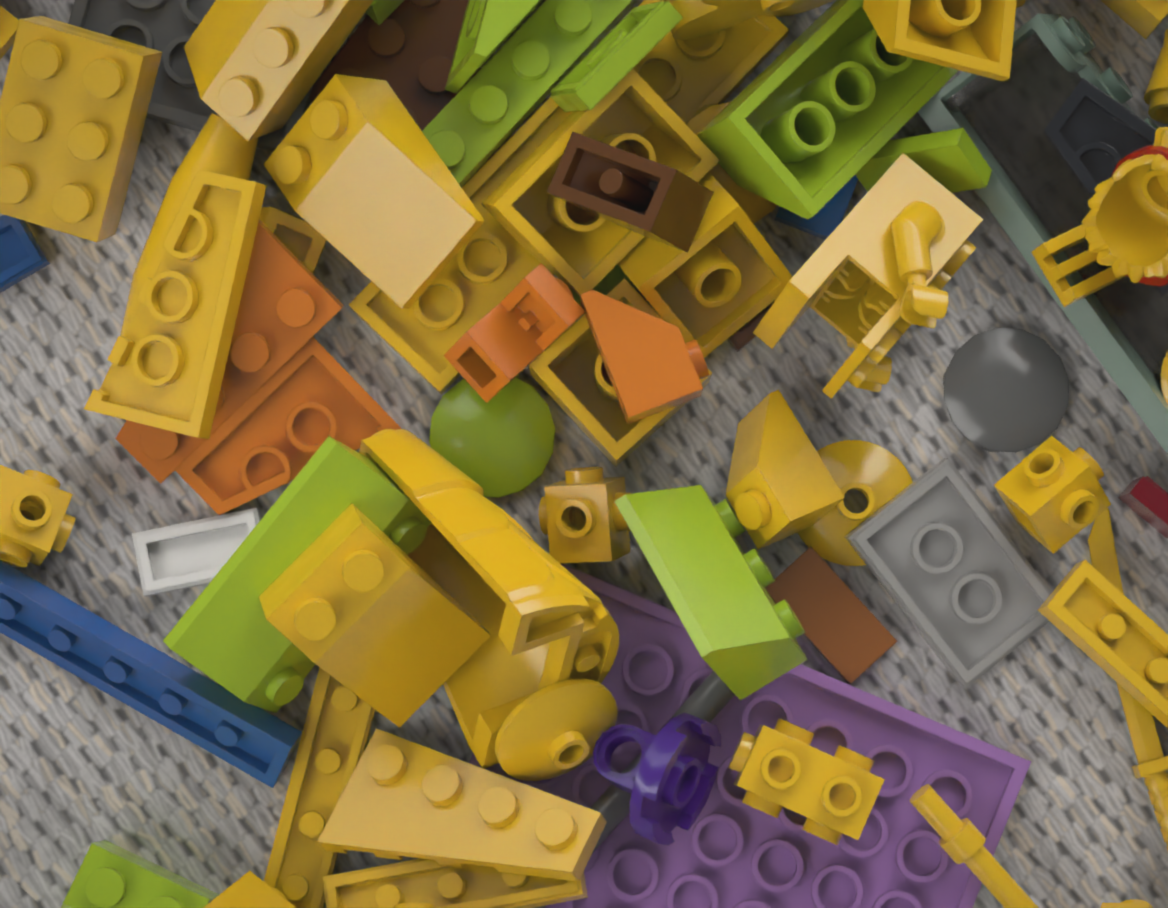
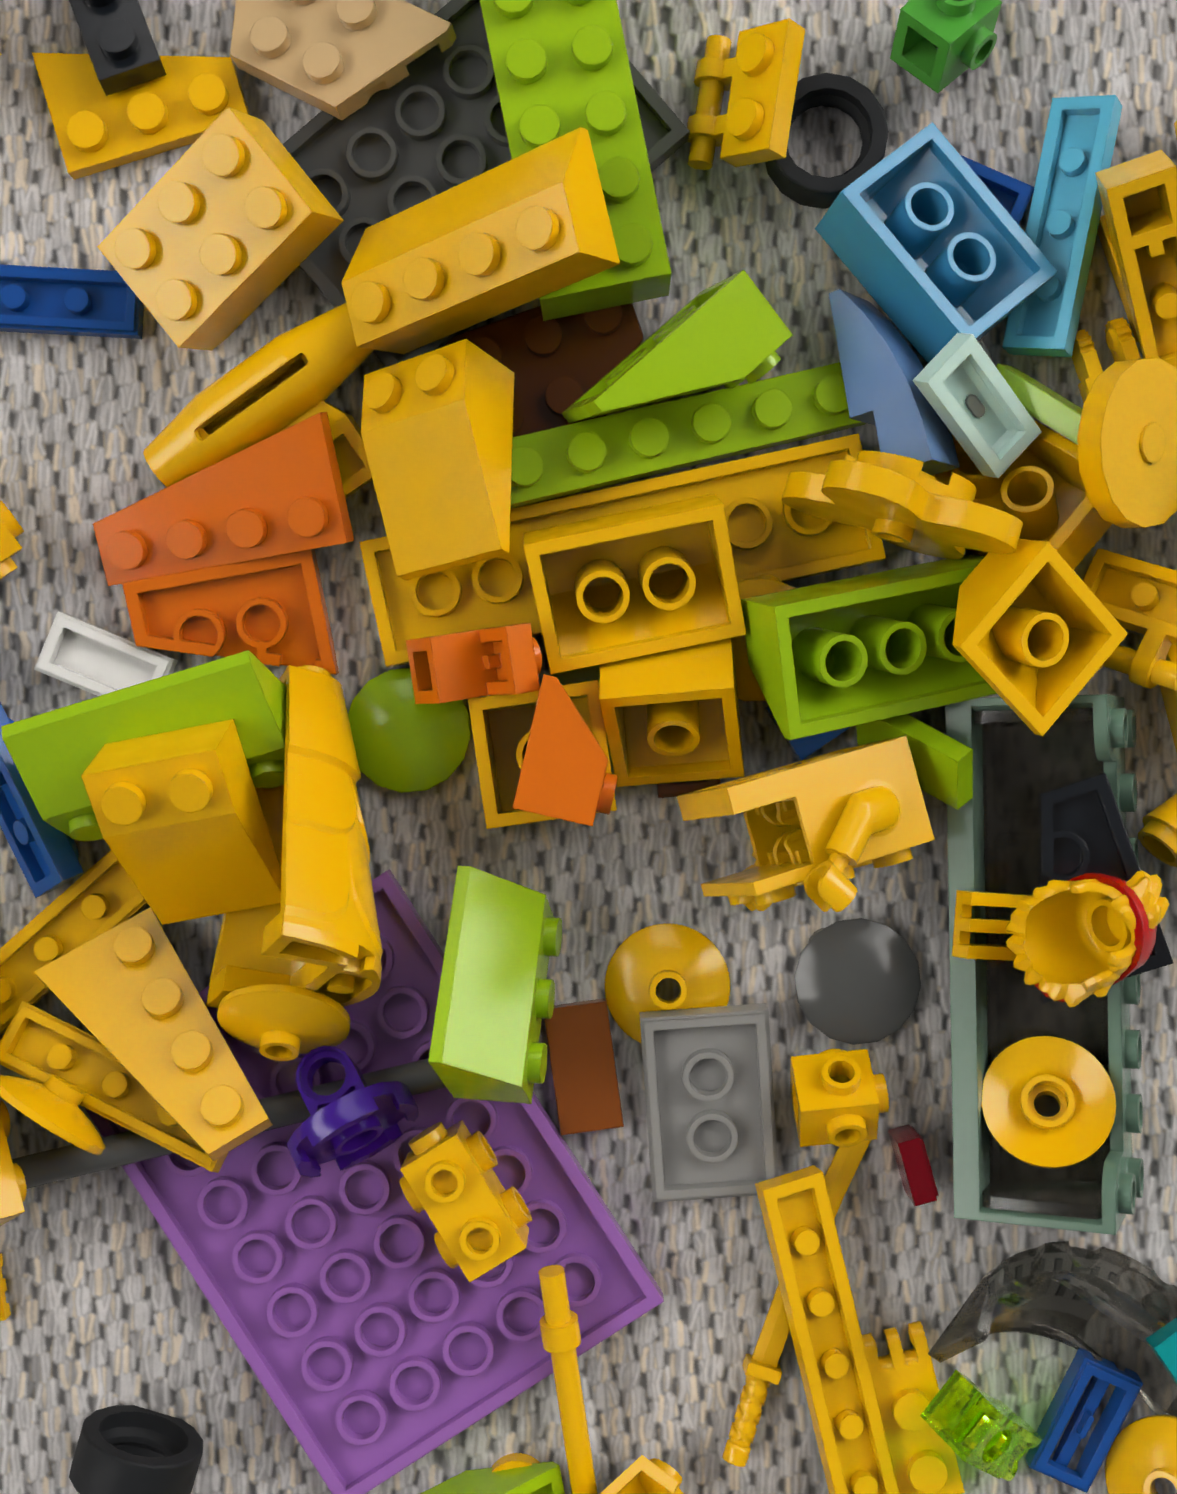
camera: 30 degrees right, 5 degrees up
(180, 338) = (191, 477): yellow wing -> none
(583, 517) = (428, 850): yellow brick -> none
(615, 56) = (719, 484): lime tile -> none
(631, 191) = (647, 614): reddish brown slope -> none
(777, 474) = (616, 926): yellow slope -> none

